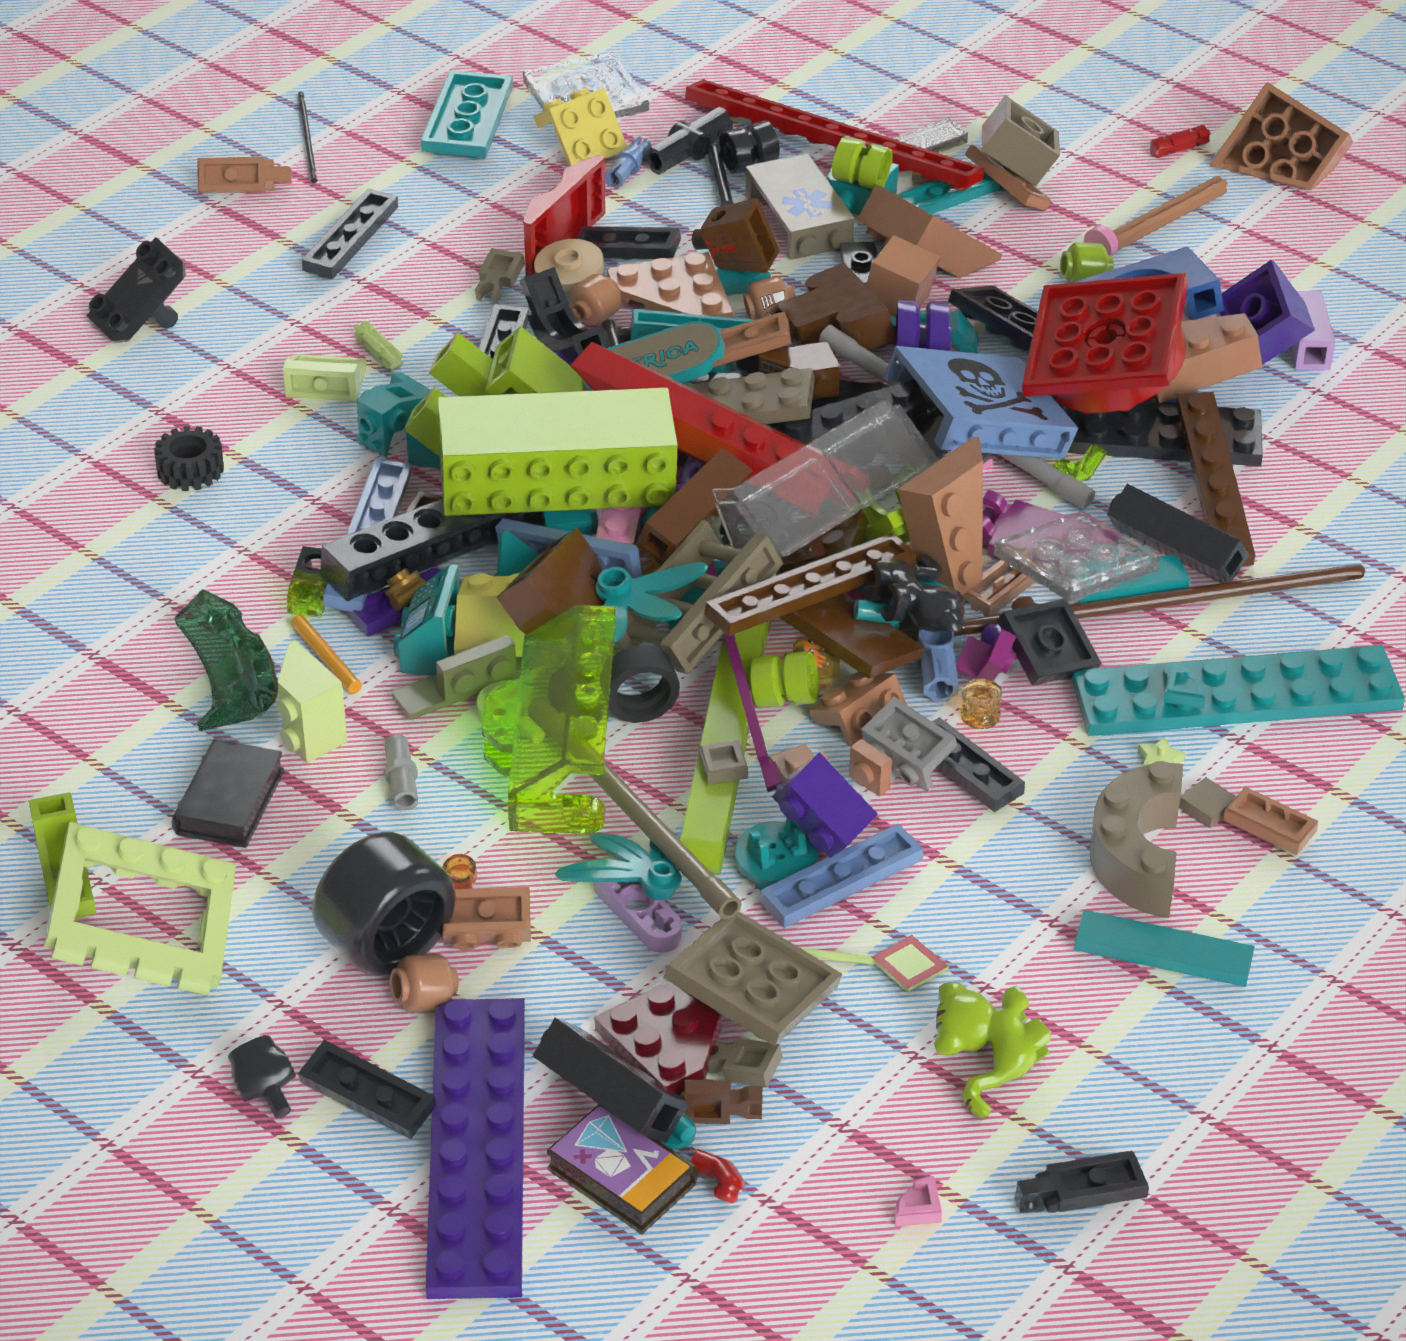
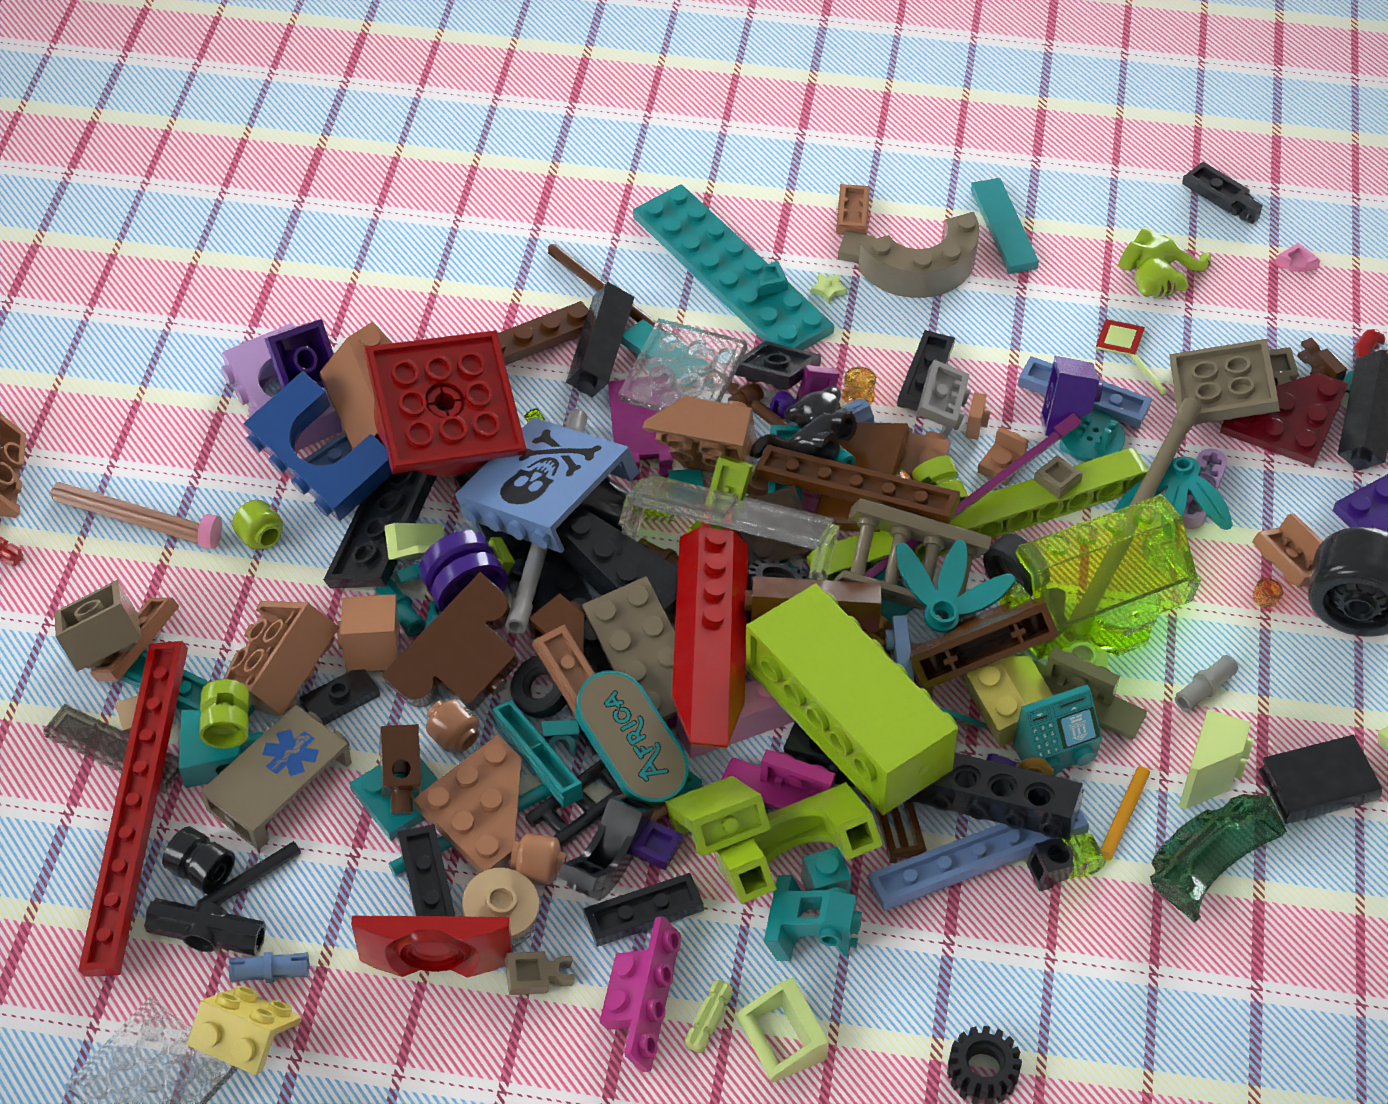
camera: 120 degrees left, 10 degrees up
(421, 312) = (640, 993): none -> dark pink bracket
(977, 323) = (411, 540): none -> yellowish green panel

